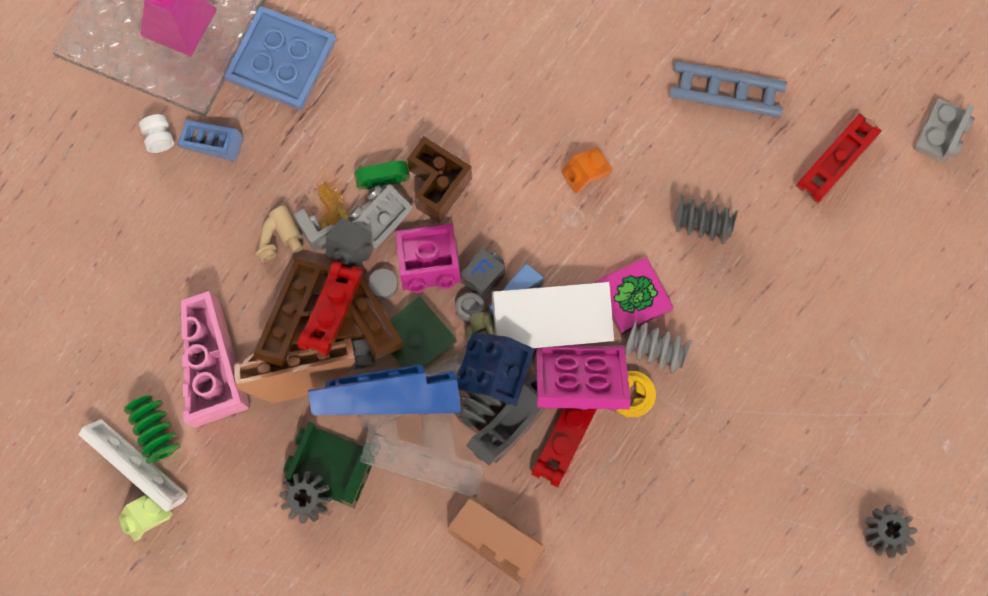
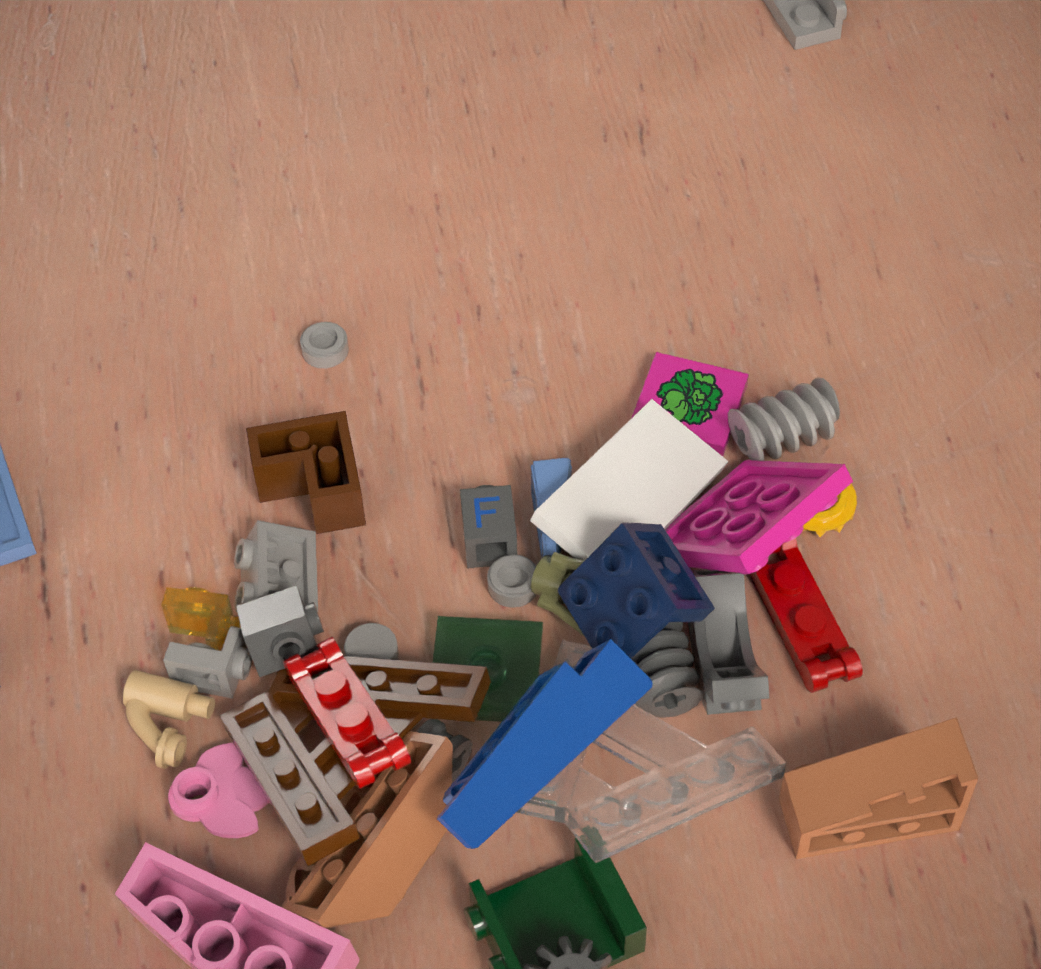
camera: 45 degrees left, 20 degrees down
(263, 299) = (227, 791): none -> bright pink plate
(381, 174) = (218, 539): green beam -> none
(428, 258) = (399, 566): dark pink plate -> none
(513, 114) = (324, 345): none -> light grey tile
(586, 168) = (477, 327): orange bracket -> none
(704, 220) = (674, 261): dark grey piece -> none
(741, 79) = (533, 157): sand blue bar -> none
(839, 158) = (736, 107): red plate -> none

